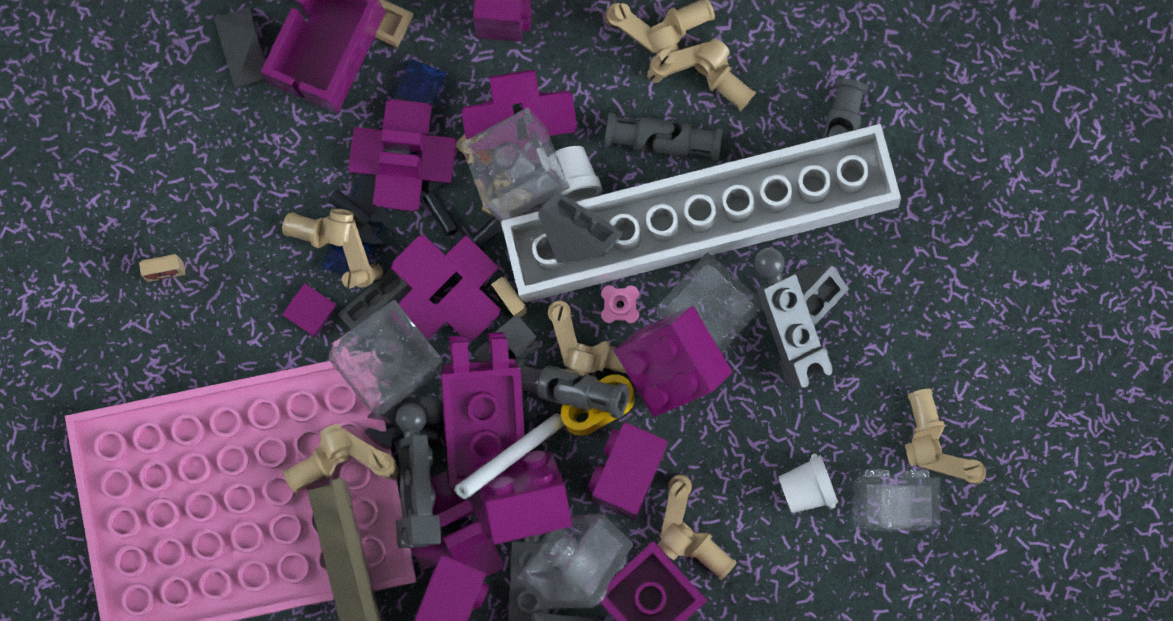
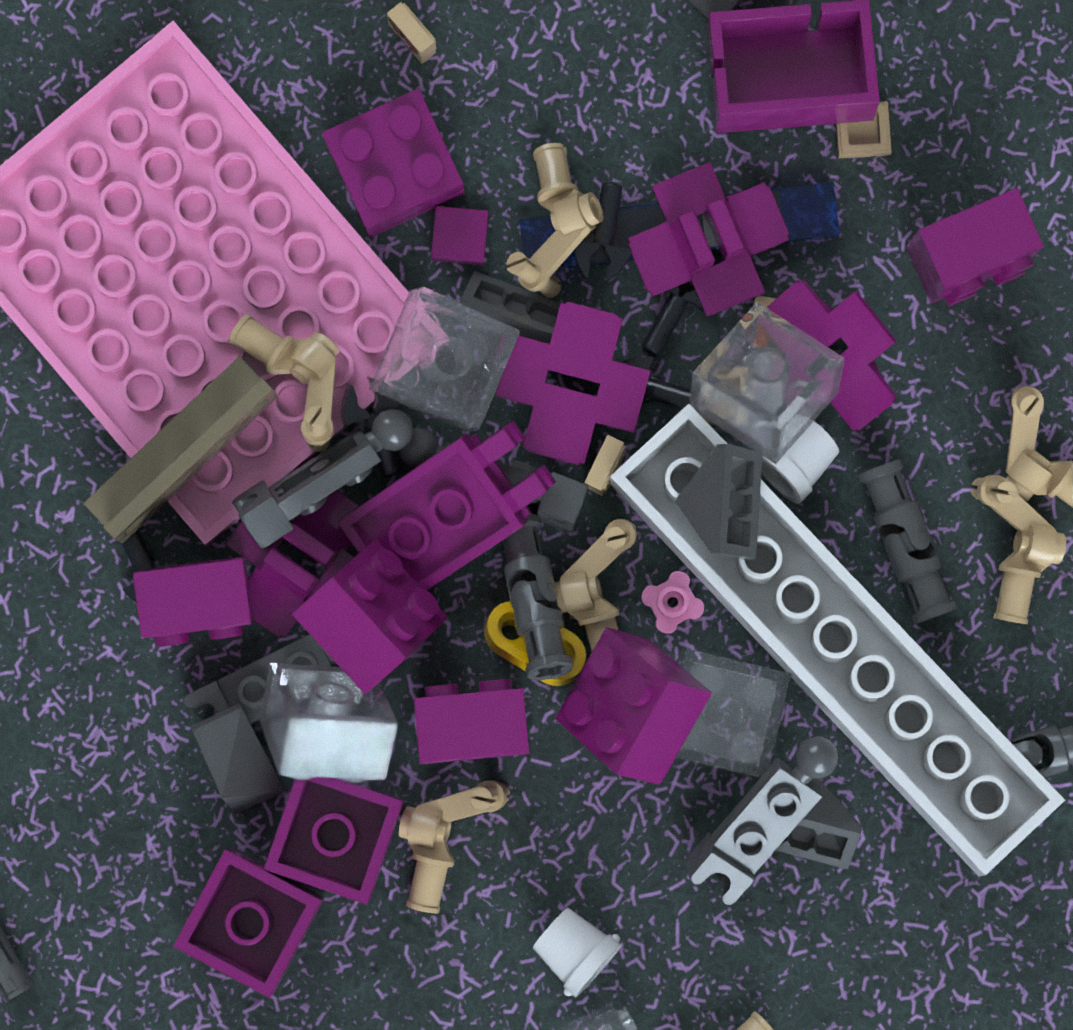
camera: 55 degrees right, 5 degrees up
(239, 325) = (393, 163): none -> magenta brick
(509, 456) = (409, 573): white piece -> none

